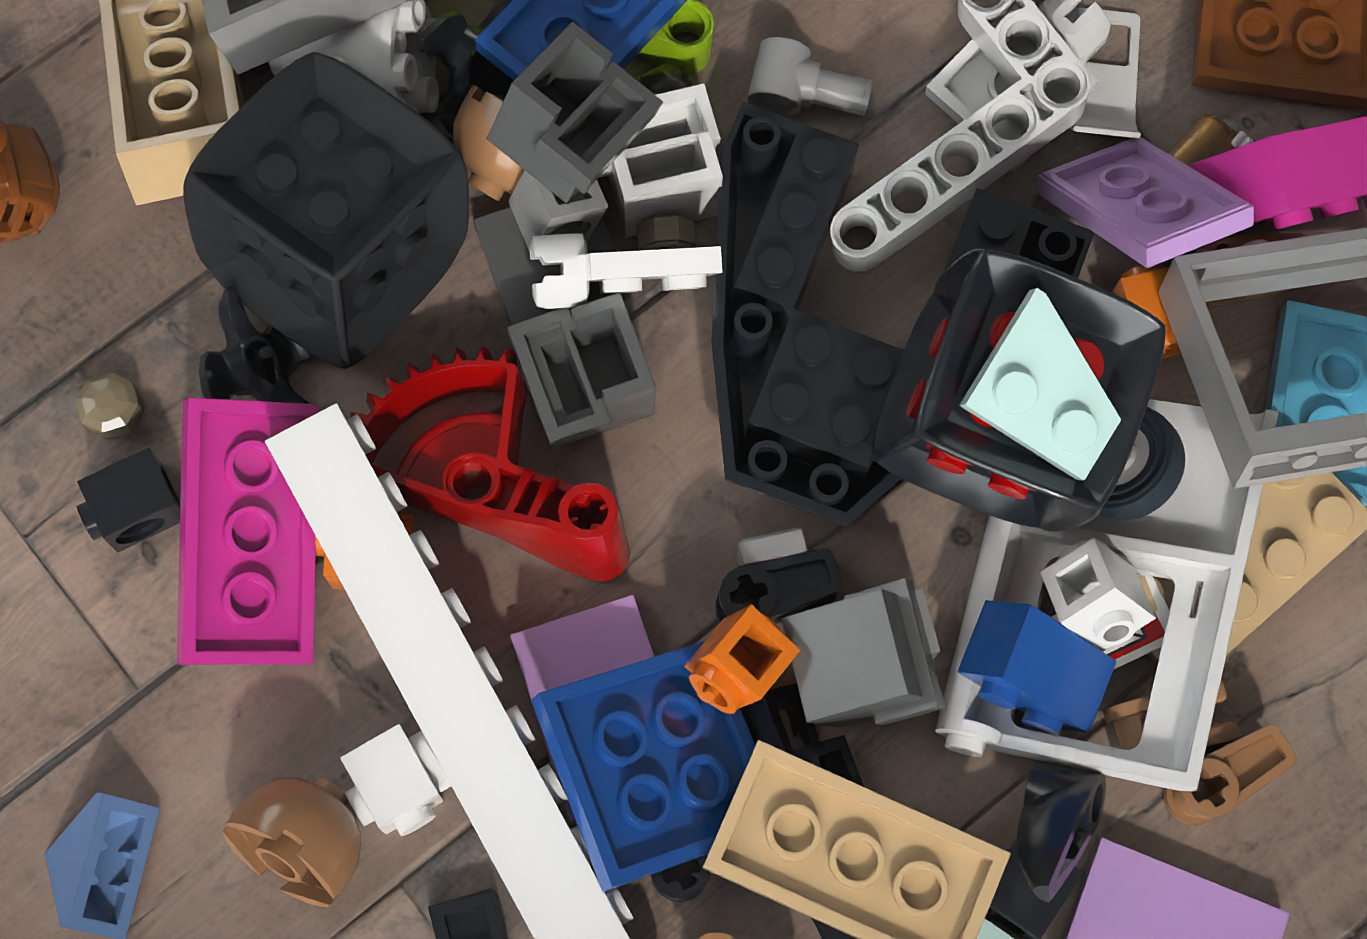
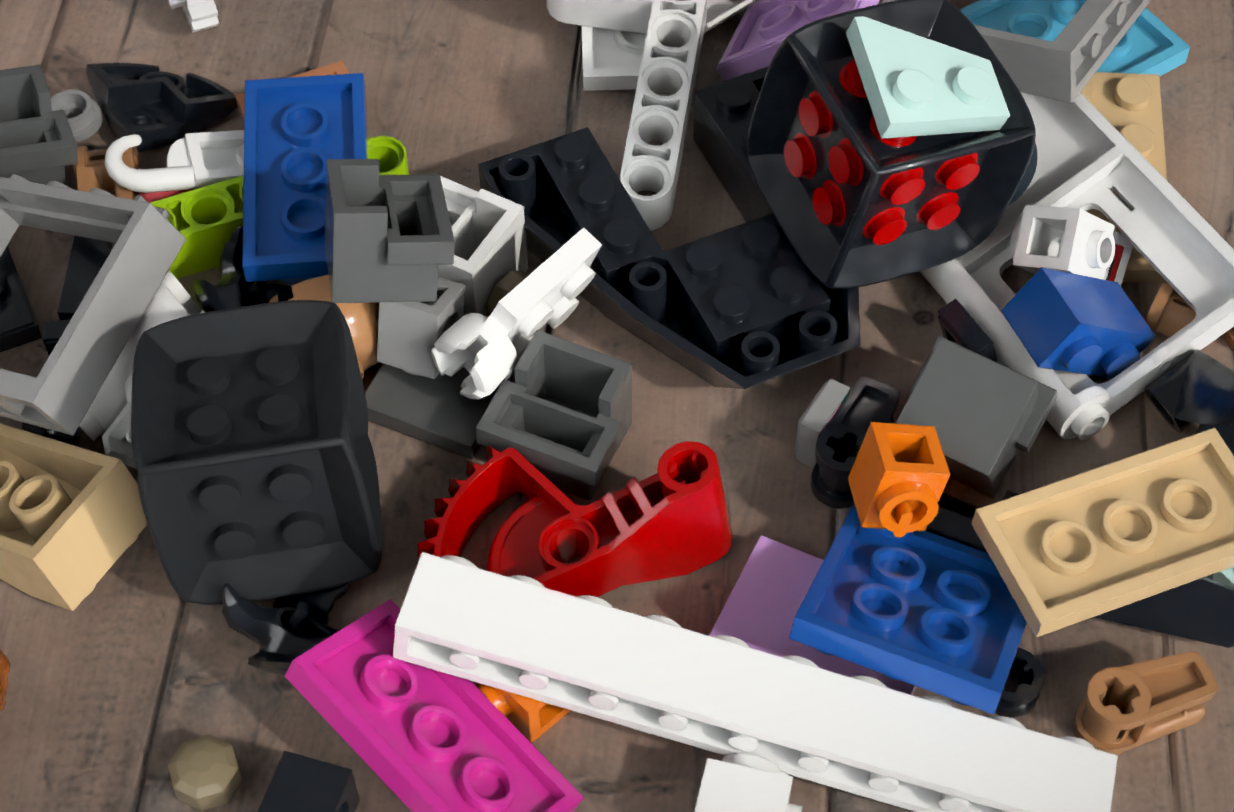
camera: 40 degrees left, 20 degrees down
(789, 80) = (473, 140): light grey pin -> none
(952, 591) = (963, 330): none -> black tile

